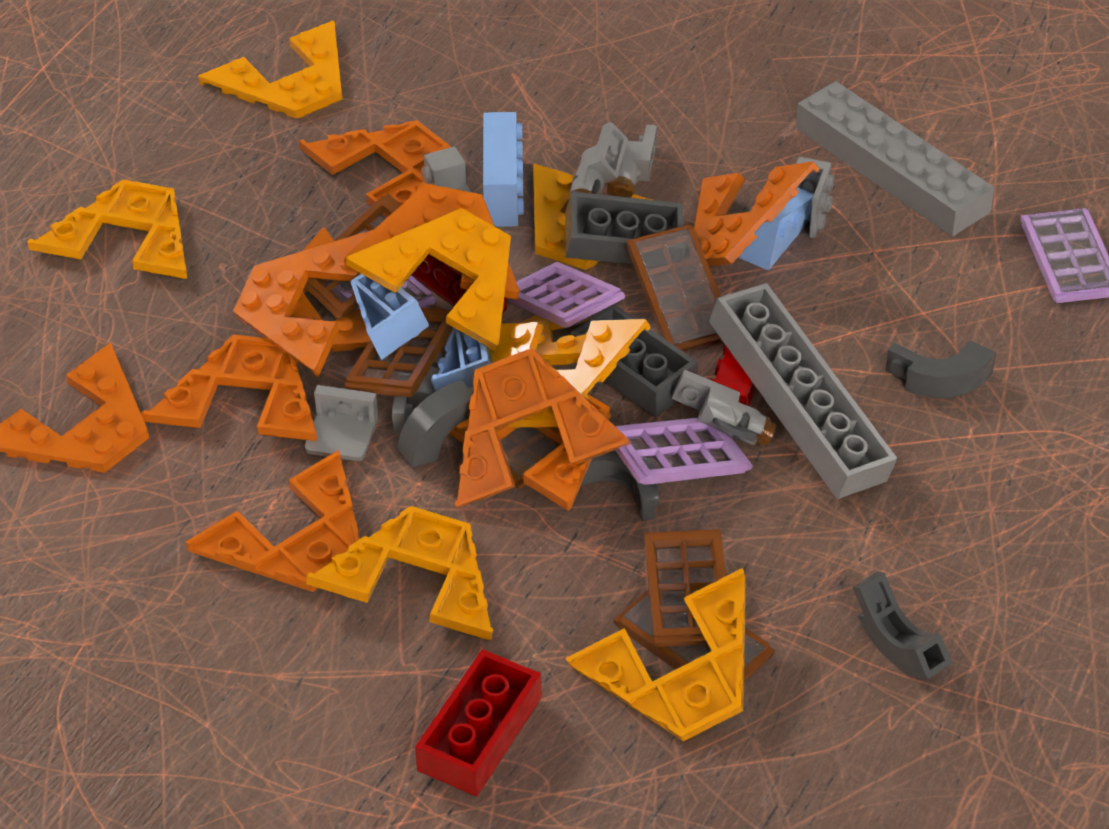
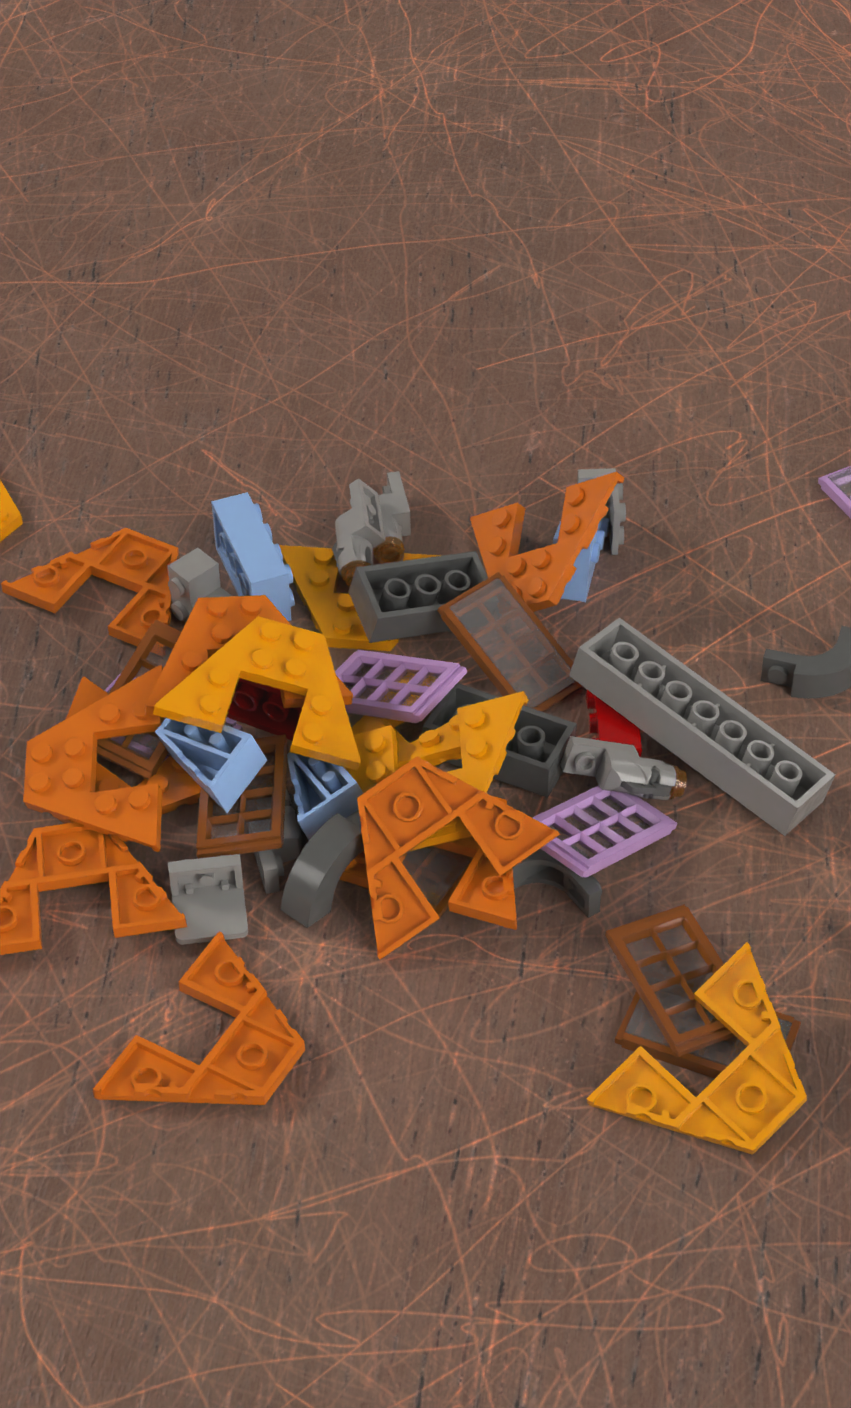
camera: 20 degrees left, 0 degrees up
(425, 542) = (374, 1010): light orange wing -> none
(478, 722) = (532, 1202): red brick -> none
(895, 158) = (662, 447): light grey brick -> none

